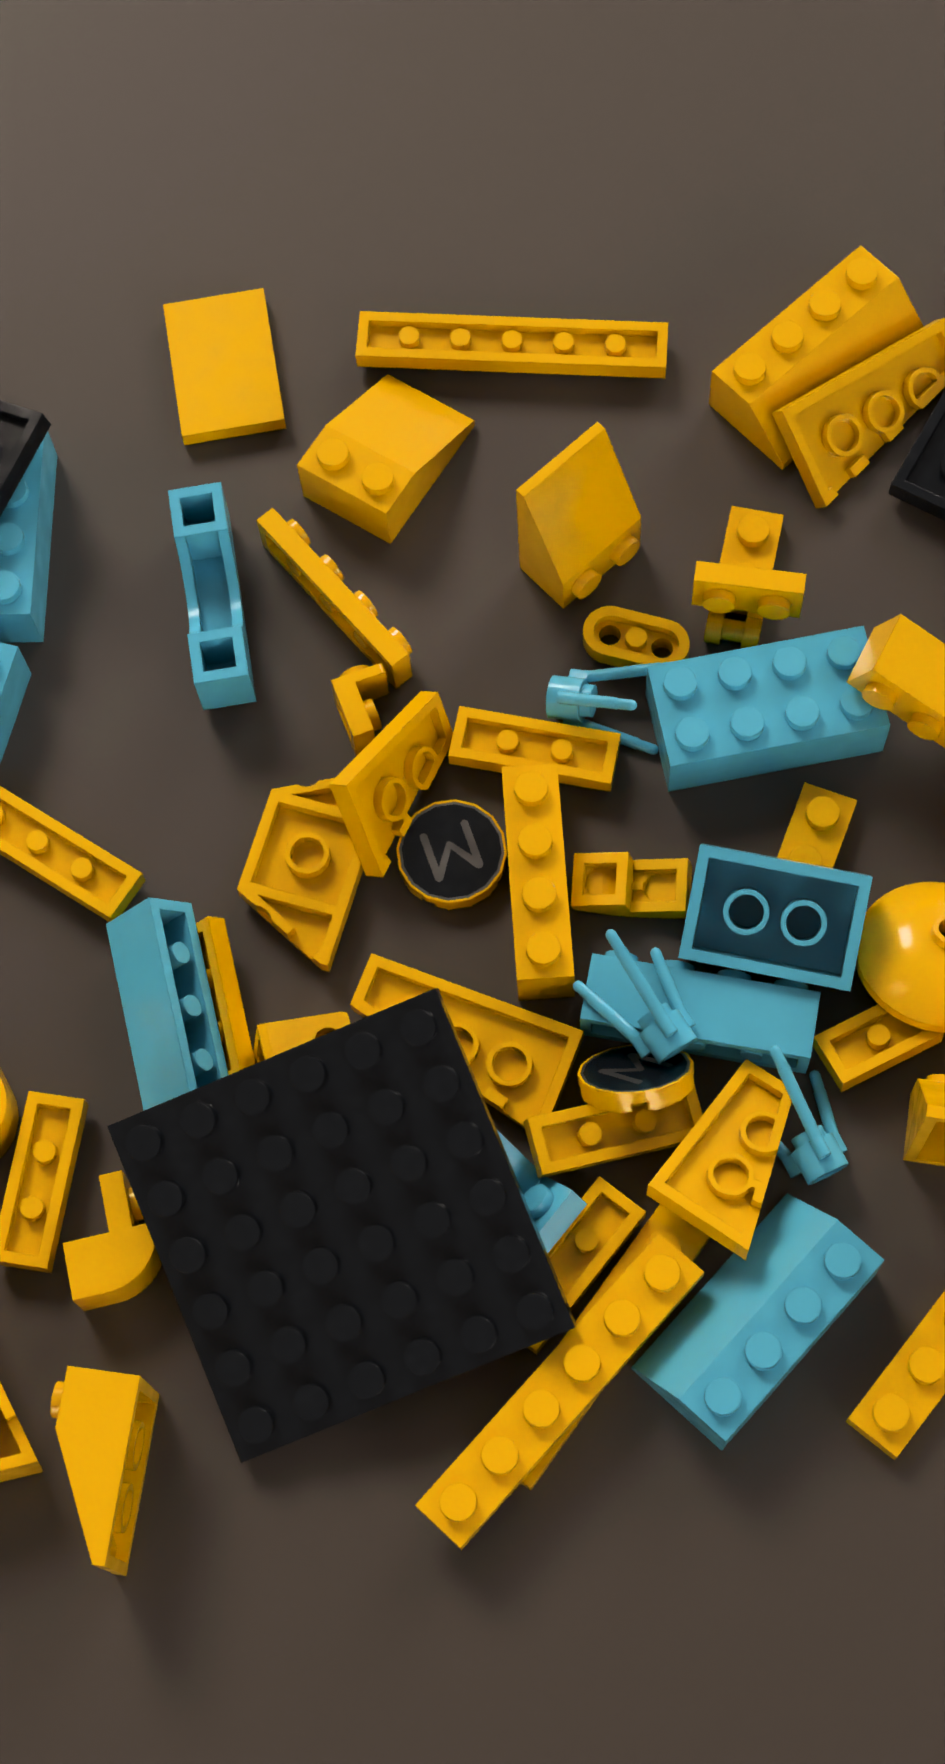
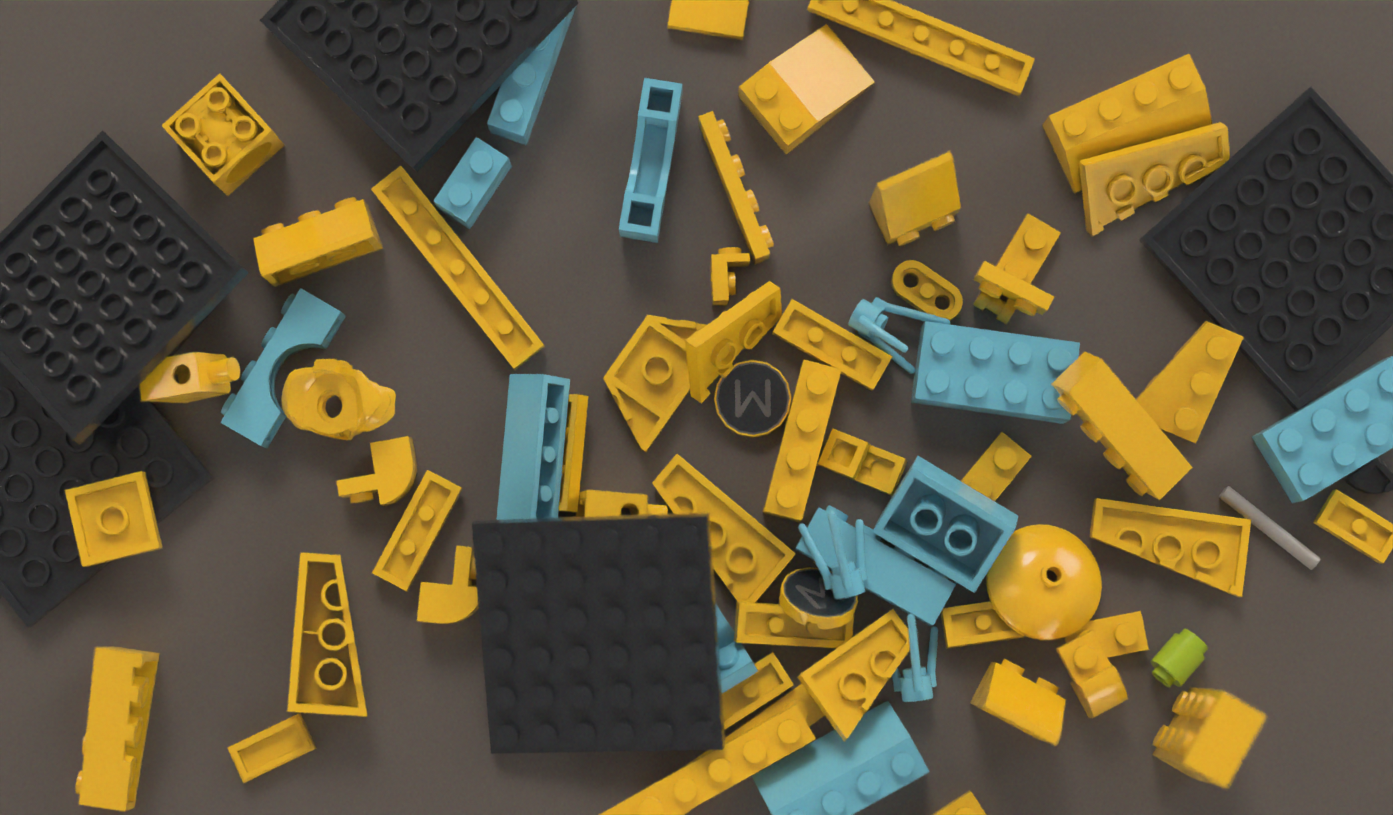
camera: 10 degrees right, 15 degrees up
(105, 1445) = (409, 720): yellow slope -> none

